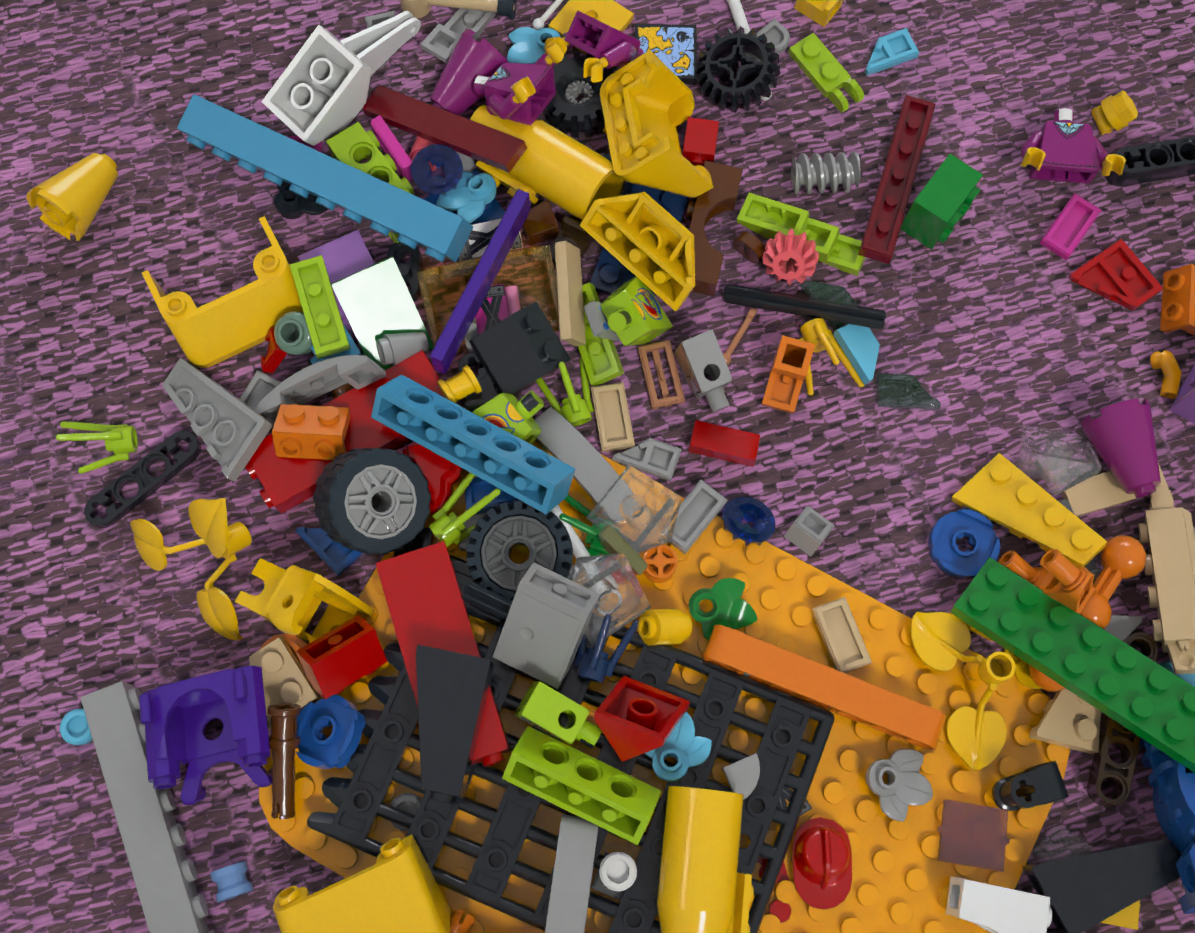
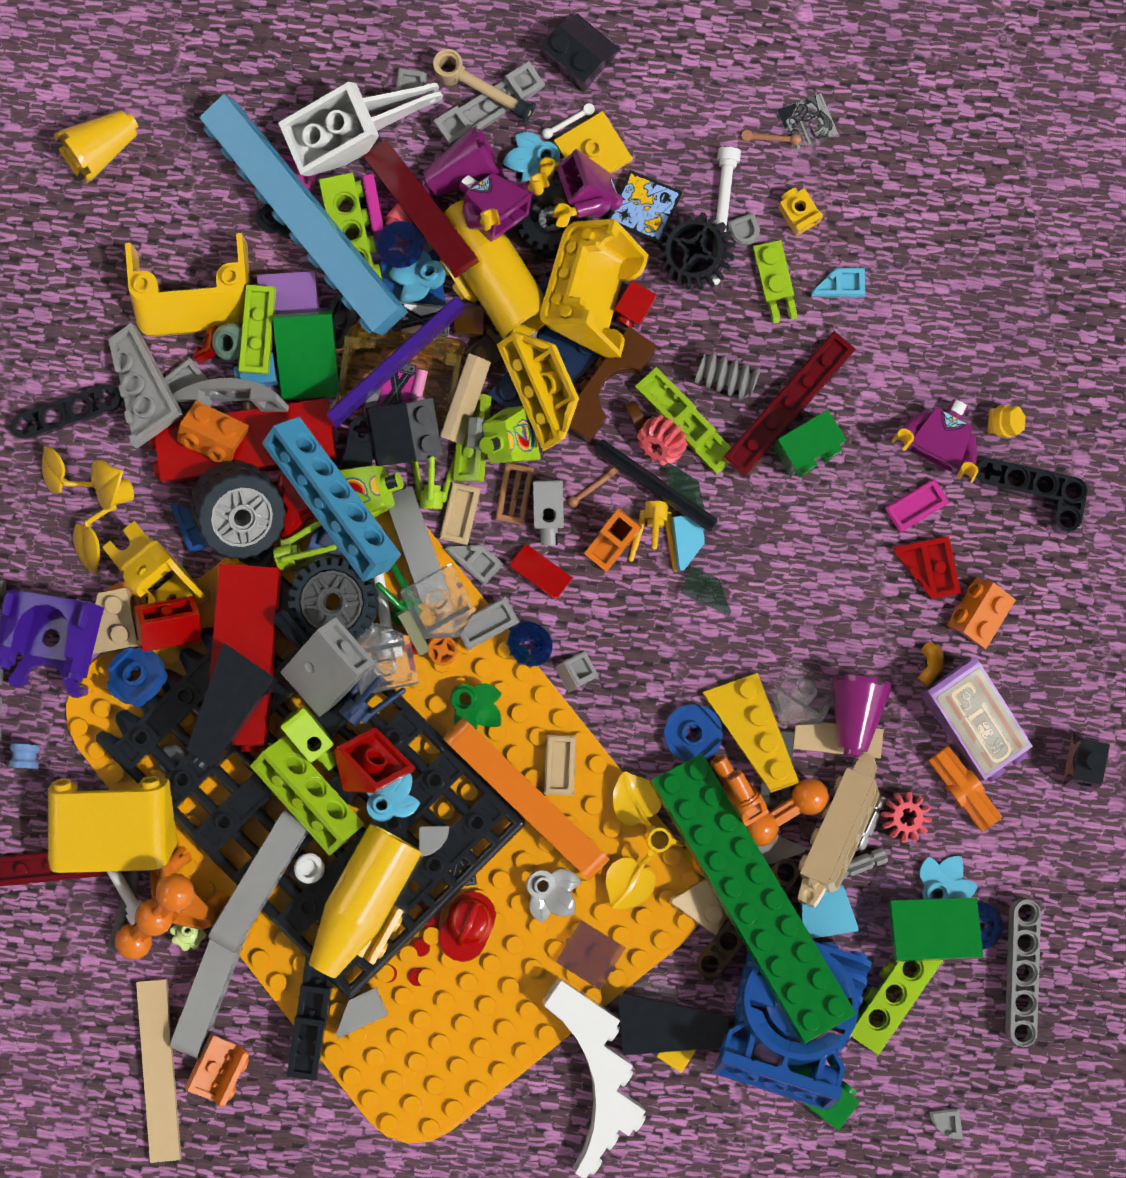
camera: 20 degrees right, 10 degrees up
(117, 438) = (58, 371): lime plant -> none
(283, 745) = (99, 671): reddish brown pin -> none
(400, 346) = (311, 388): light grey cone -> none
(460, 385) = (342, 443): yellow bush -> none
(664, 627) = (423, 702): yellow brick -> none
(1030, 788) = (653, 938): black piece -> none

